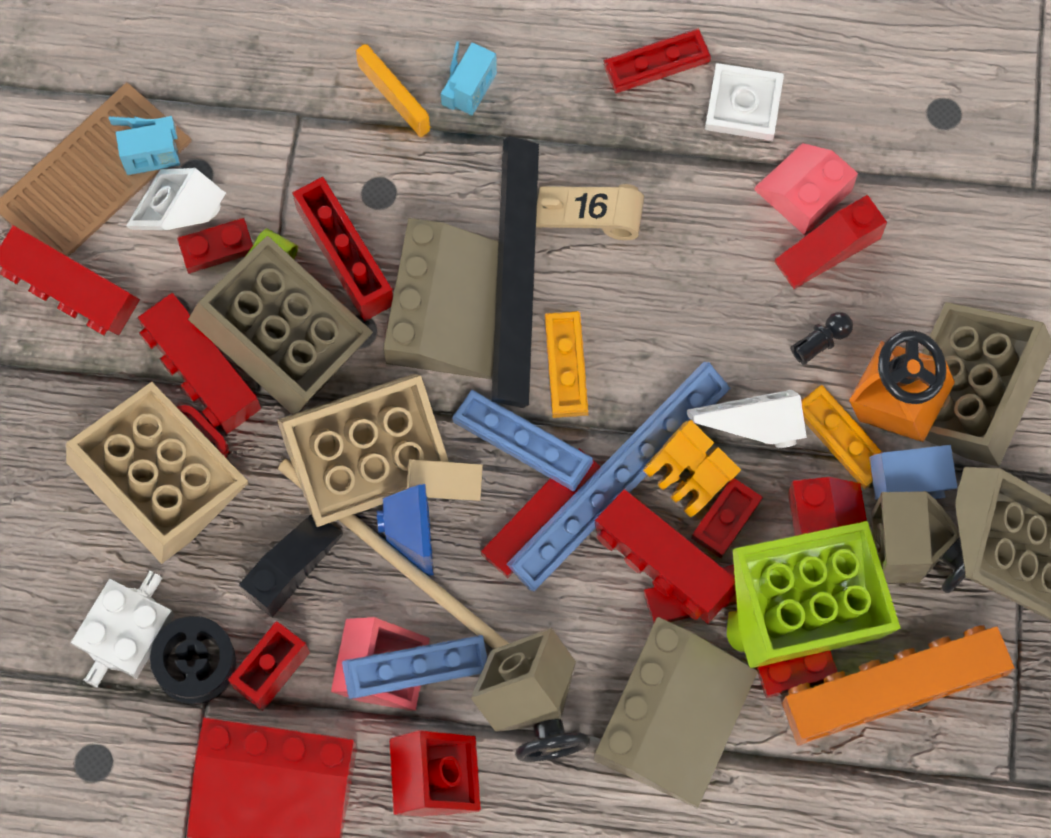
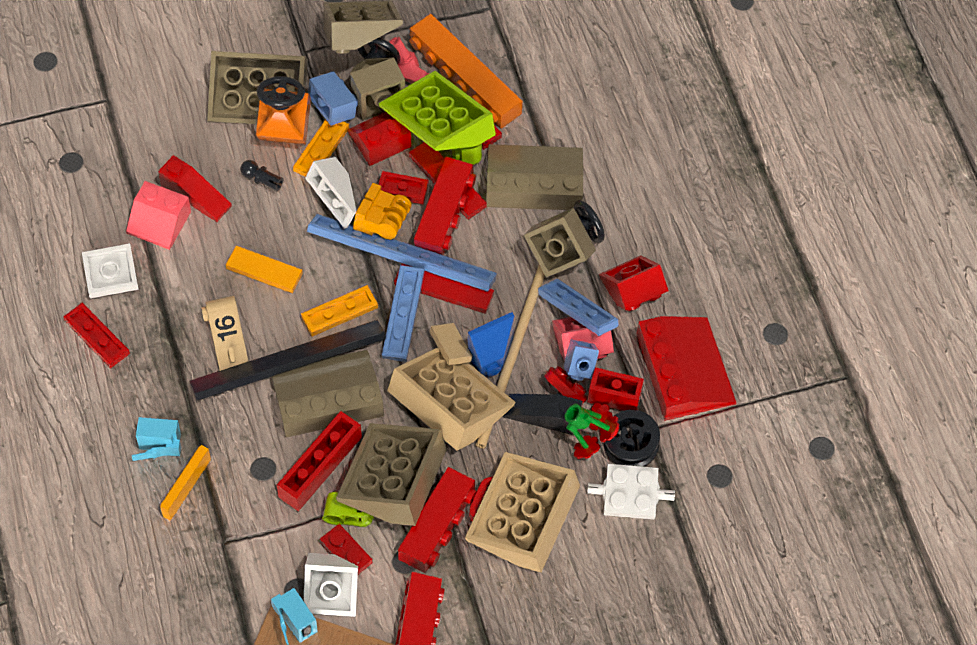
camera: 115 degrees left, 10 degrees down
(219, 595) = (597, 419): none -> plant
(312, 605) = (558, 378): none -> red plate
(331, 633) = (580, 359): none -> medium blue brick
(670, 291) = (264, 269): none -> light orange tile
(938, 608) = (408, 62): none -> coral arm

